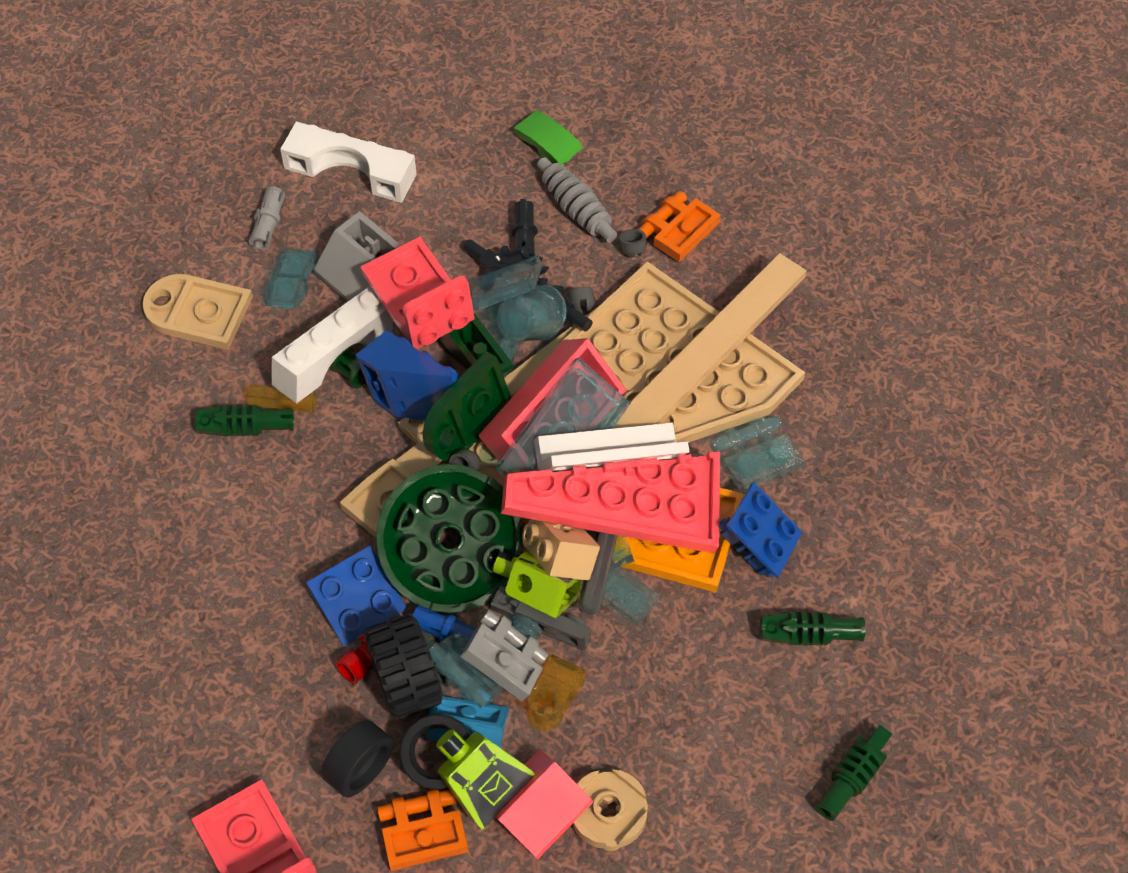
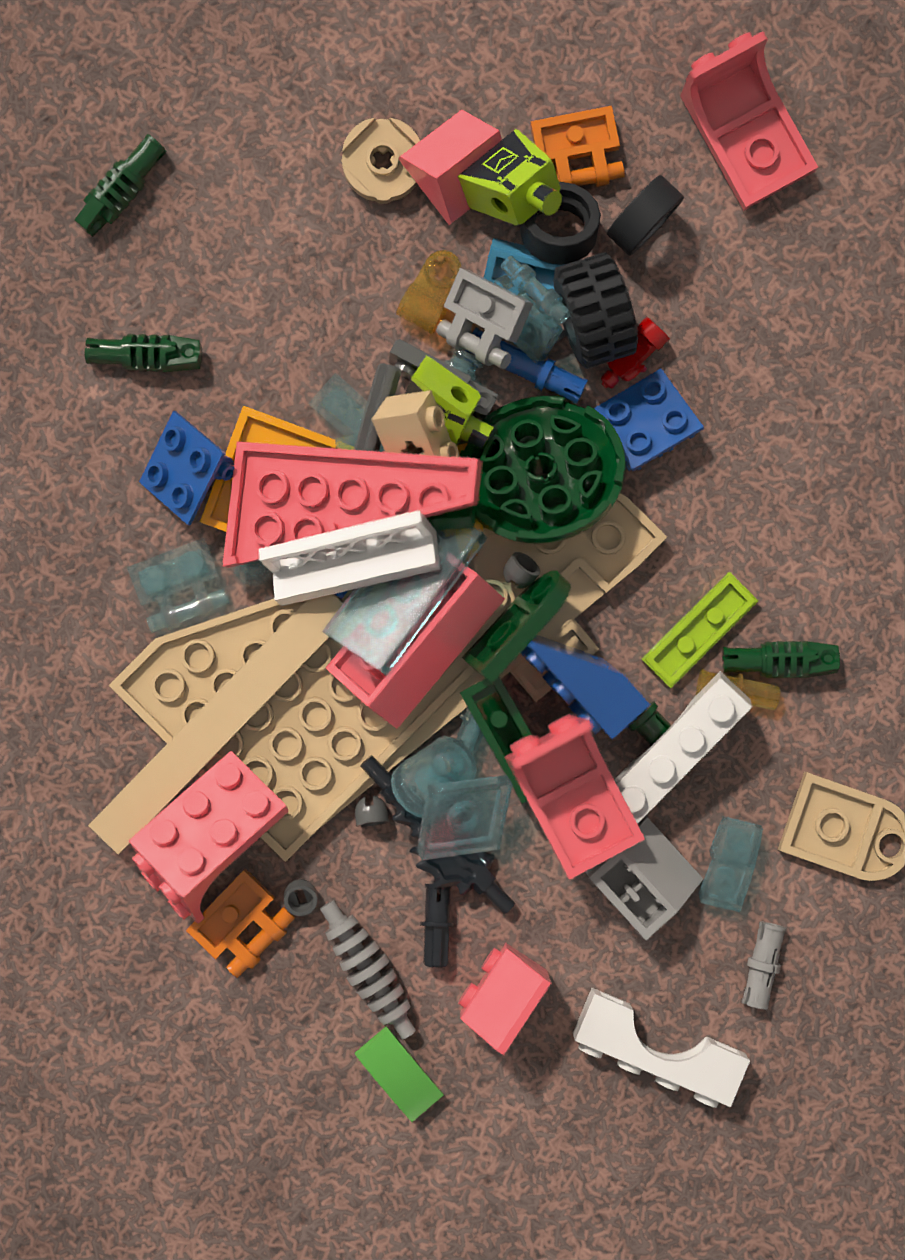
camera: 175 degrees left, 30 degrees up
(312, 442) = (699, 630): none -> lime tile
(468, 179) = (503, 996): none -> coral slope
(709, 264) = (204, 833): none -> coral bracket

